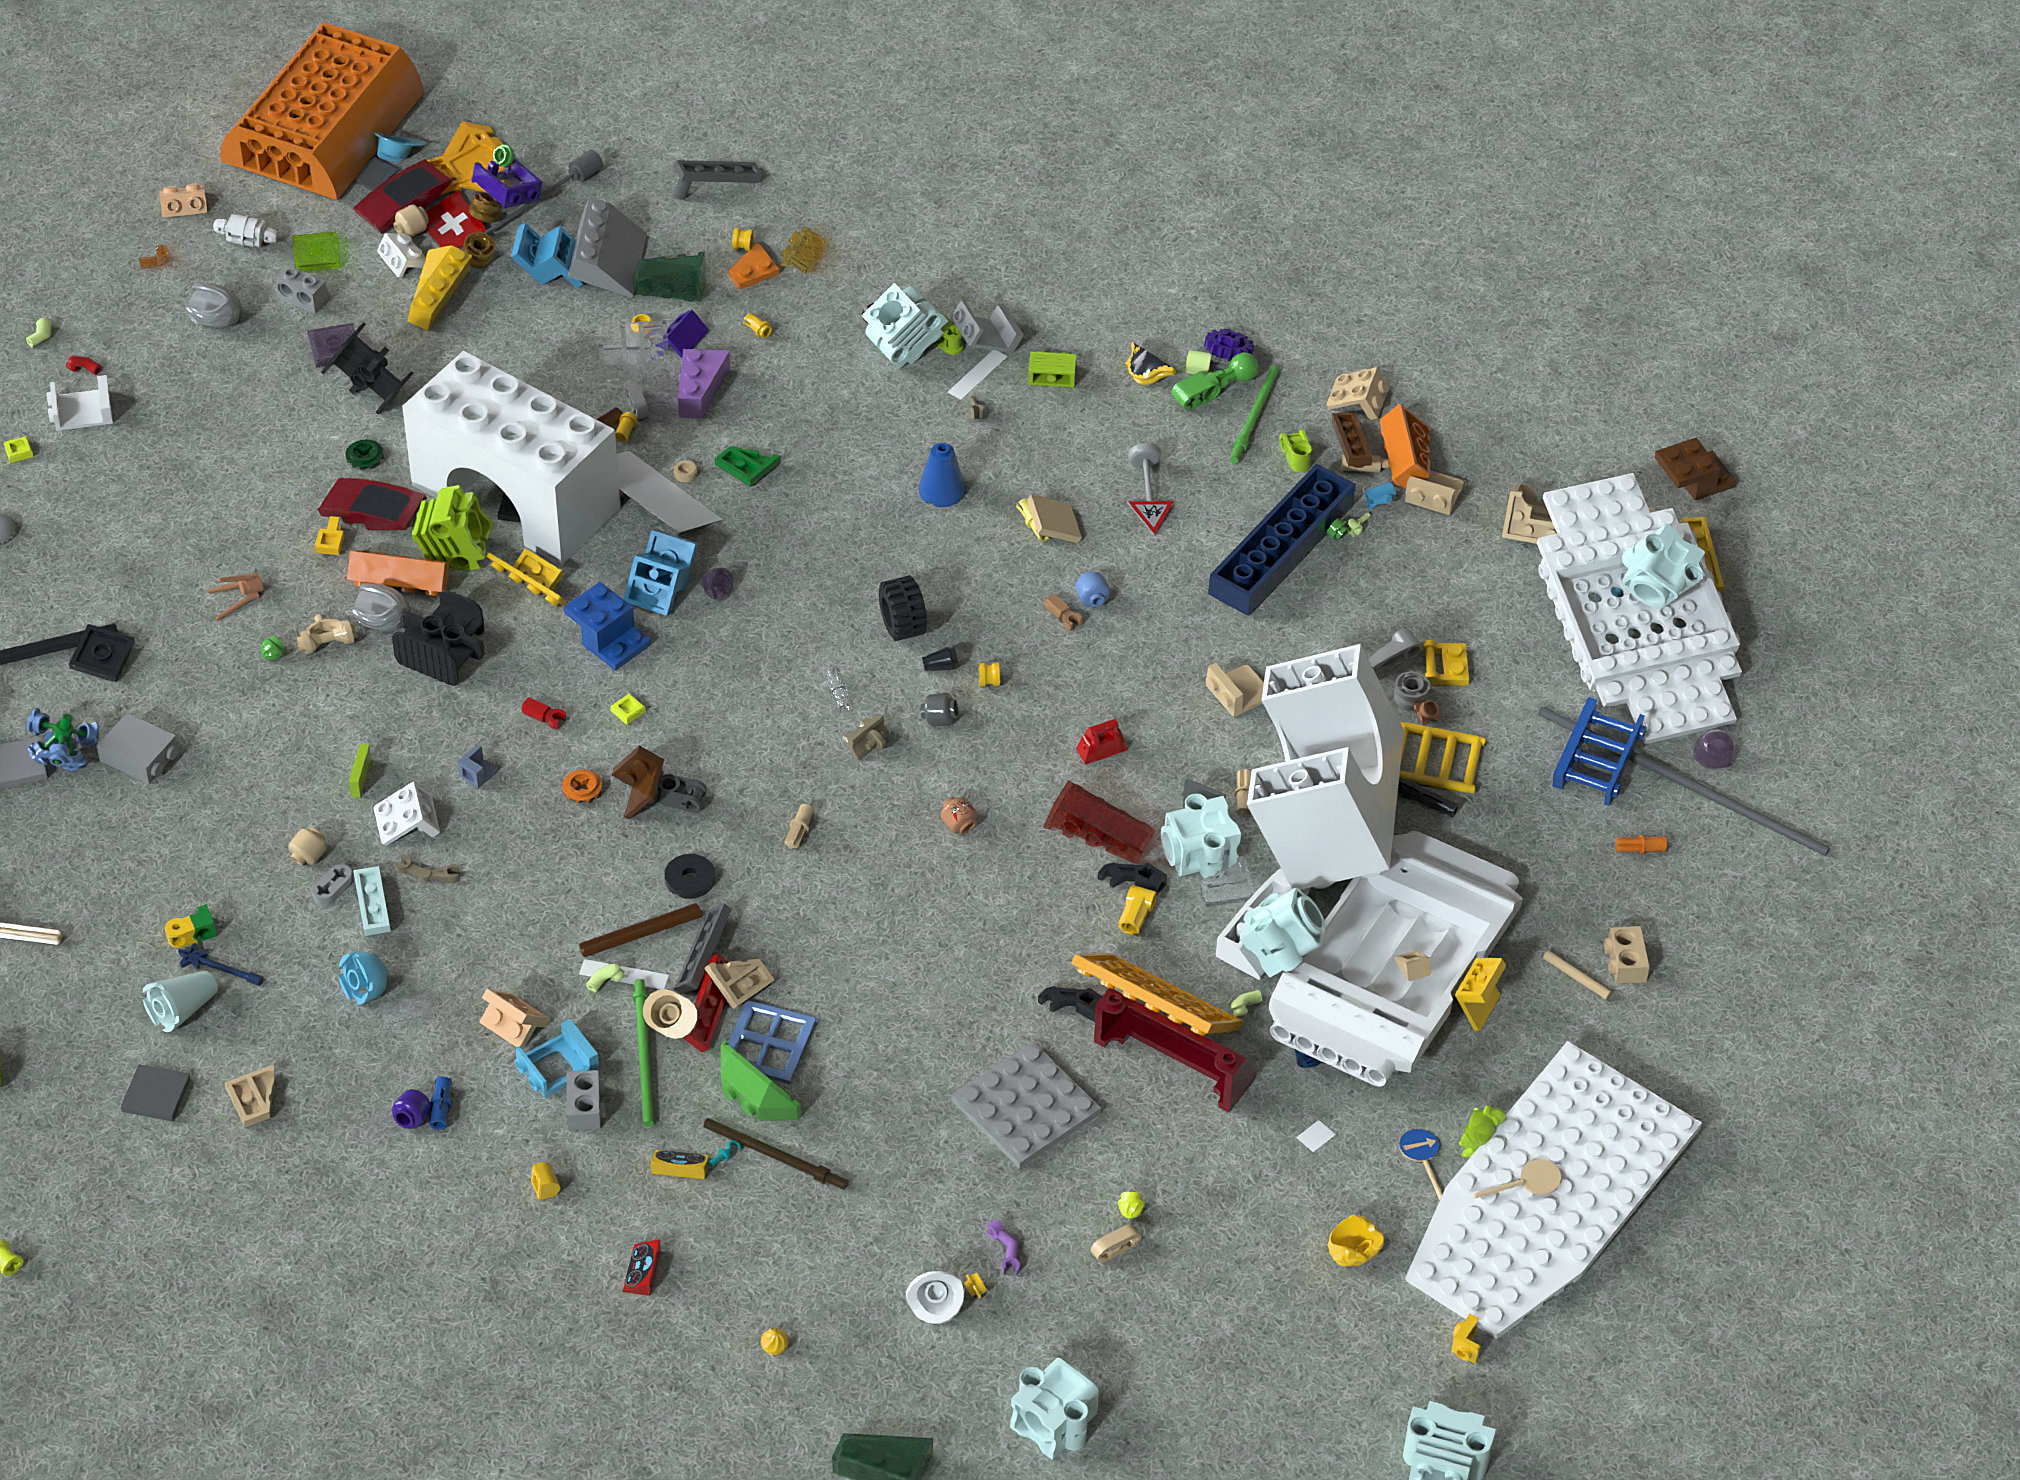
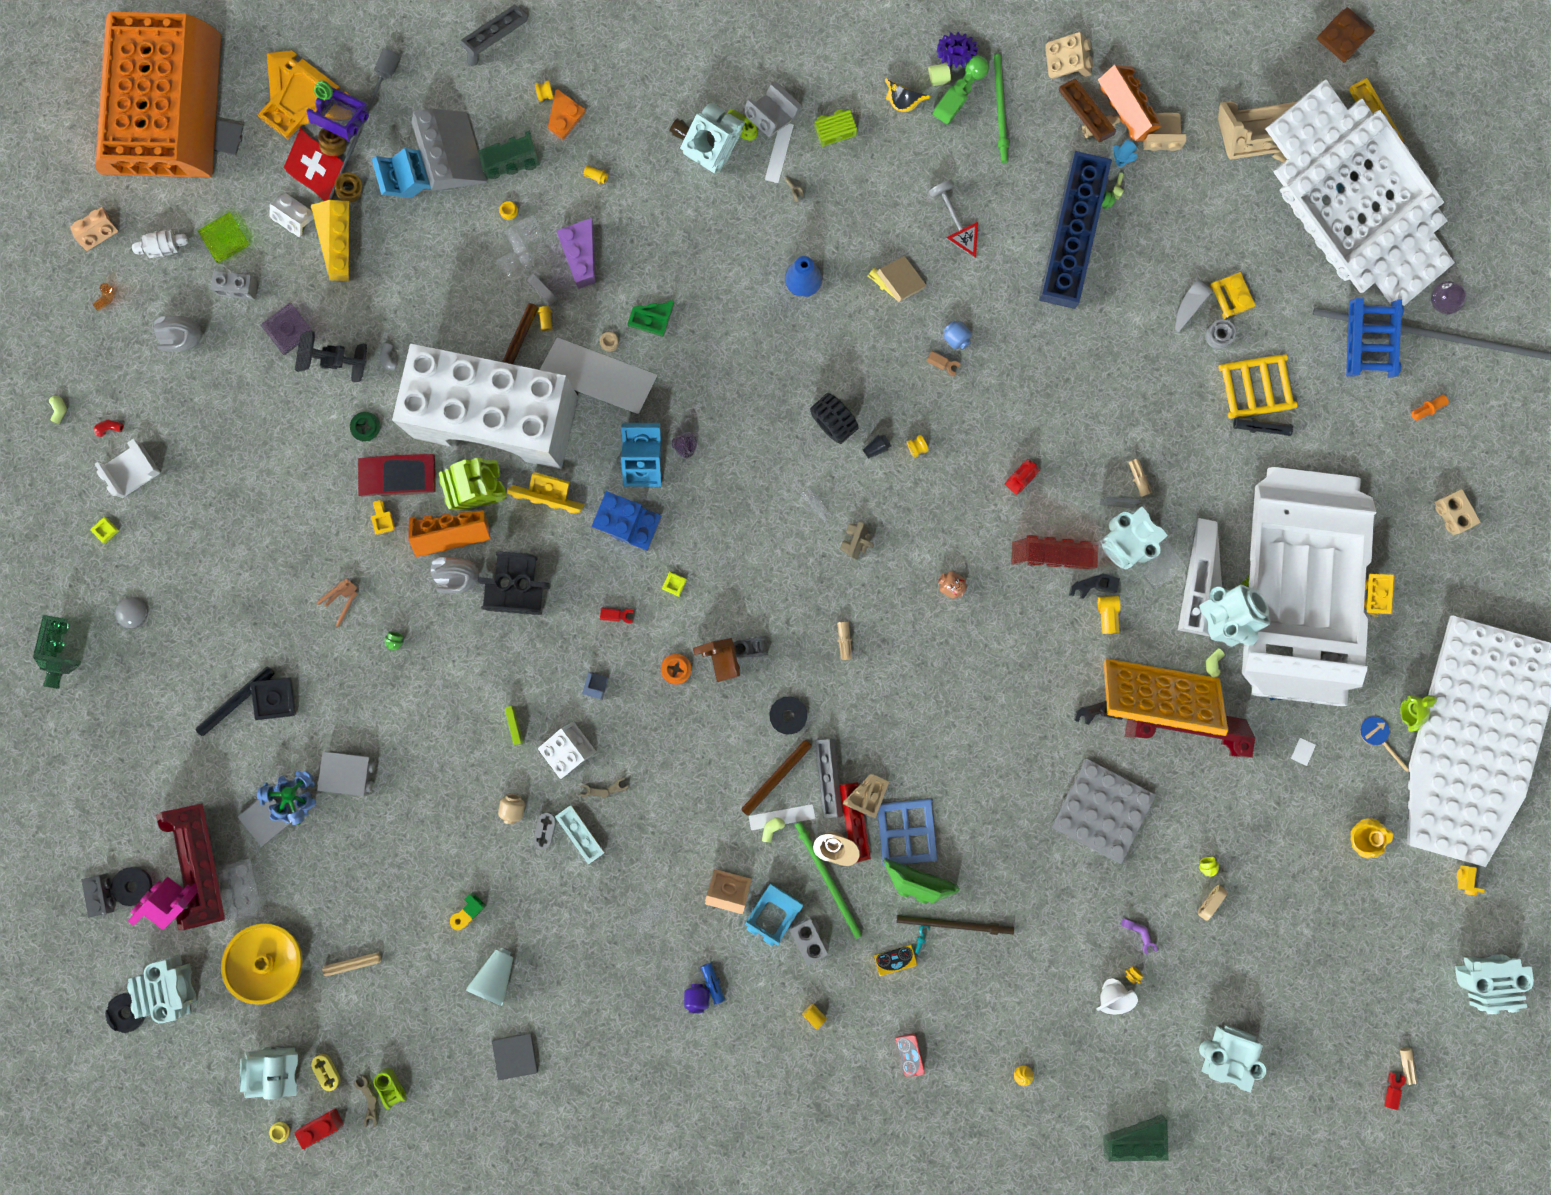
camera: 20 degrees left, 35 degrees up
(195, 957) = (482, 932): dark blue piece -> none
(253, 1095) = (583, 1032): tan wing -> none
(335, 630) = (417, 621): tan piece -> none
(360, 971) = (610, 905): medium azure cylinder -> none
(396, 147) = (230, 103): medium azure piece -> none
(411, 220) = (282, 180): tan head -> none
(412, 186) = (261, 155): dark red slope -> none
(685, 332) = (544, 205): dark purple panel -> none
(803, 250) = (594, 82): clear yellow bracket -> none
(939, 709) = (897, 494): dark grey head -> none
(1236, 690) = (1098, 383): tan bracket -> none
(1297, 450) = (1045, 130): lime piece -> none
(1336, 794) = (1222, 467): white arch -> none
(1414, 965) = (1331, 600): tan slope -> none
(1427, 711) = (1238, 347): nougat plate -> none
(1537, 1177) = (1473, 737): tan piece -> none
(1577, 975) = (1425, 540): tan bar -> none
(1661, 567) = (1382, 168): light aqua piece -> none

